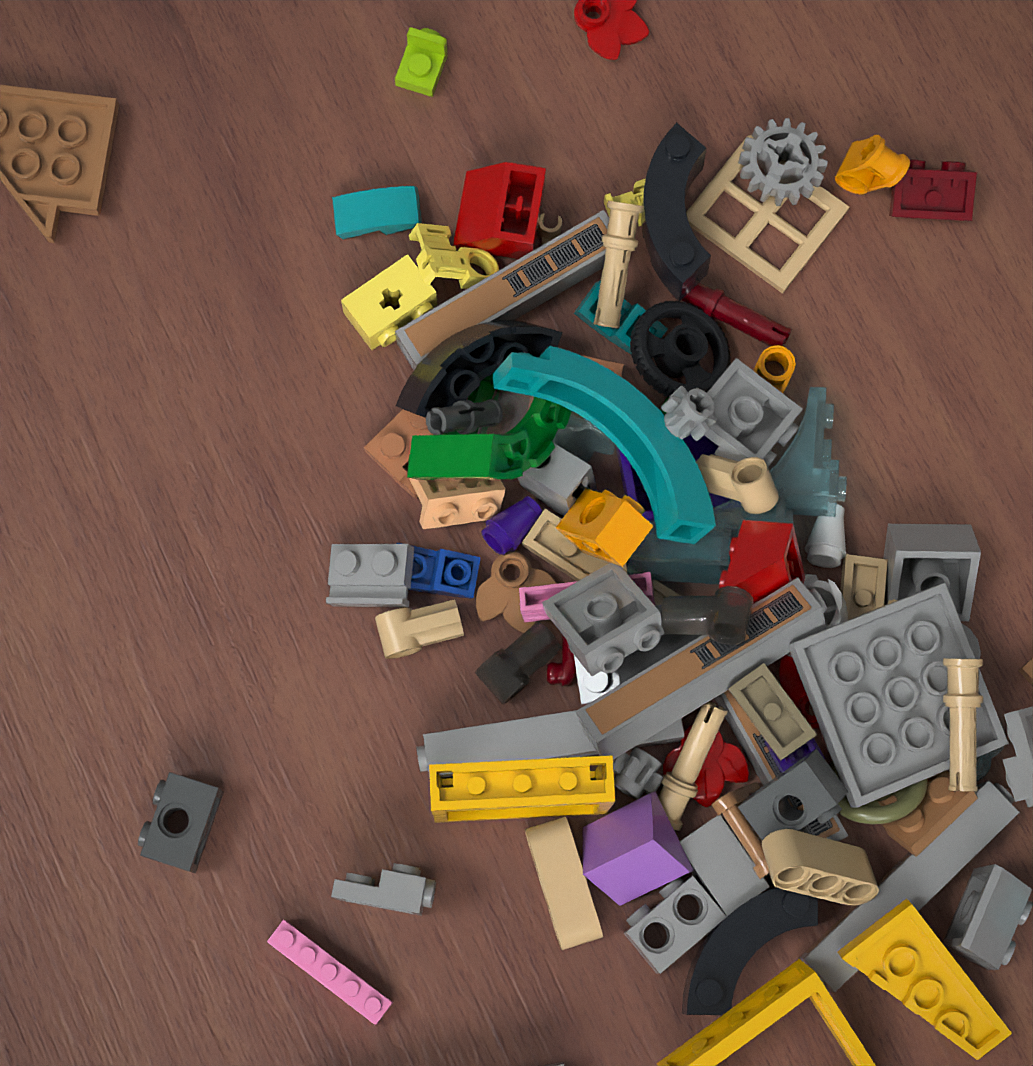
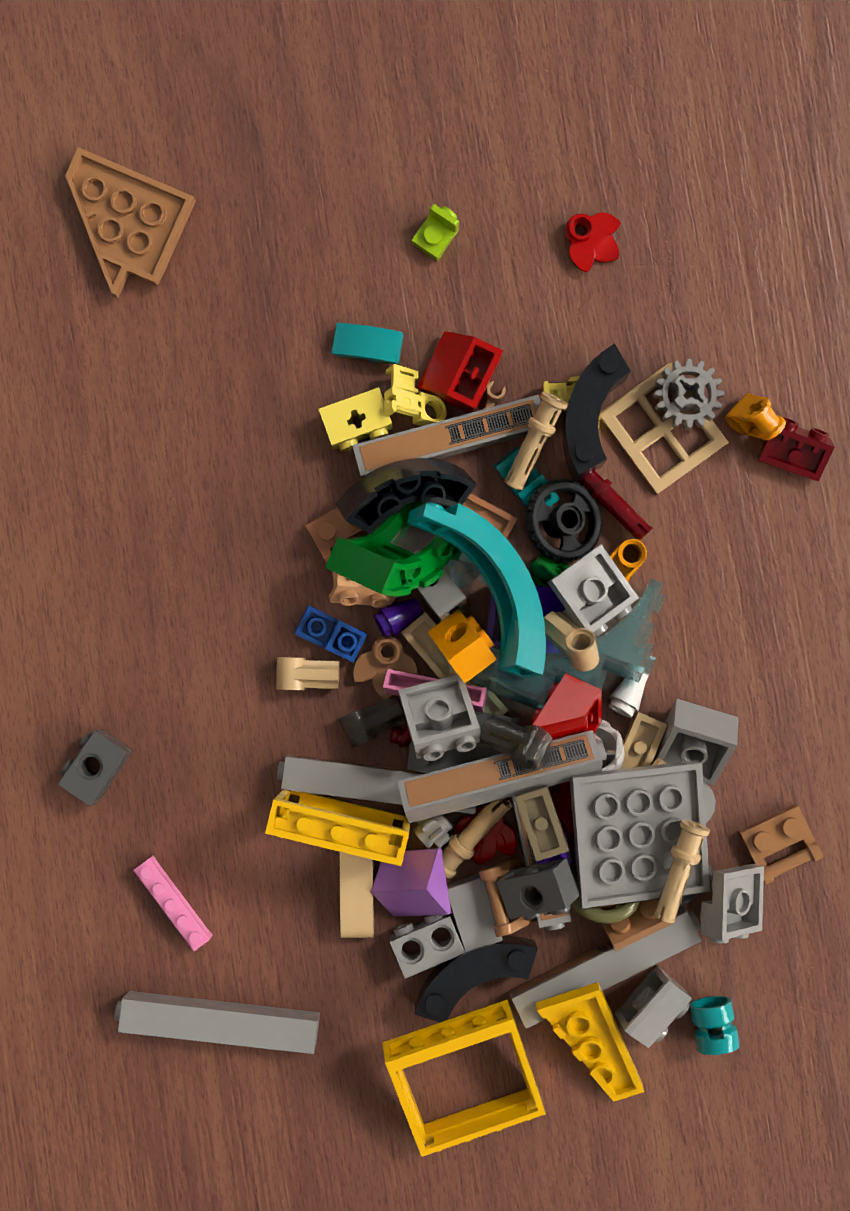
camera: 15 degrees right, 10 degrees up
(370, 575) = (282, 624): light grey plate -> none
(398, 890) = (233, 867): light grey plate -> none
(464, 417) = (381, 532): dark grey pin -> none
(689, 413) = (549, 583): light grey gear -> none
(819, 867) = (541, 942): tan beam -> none

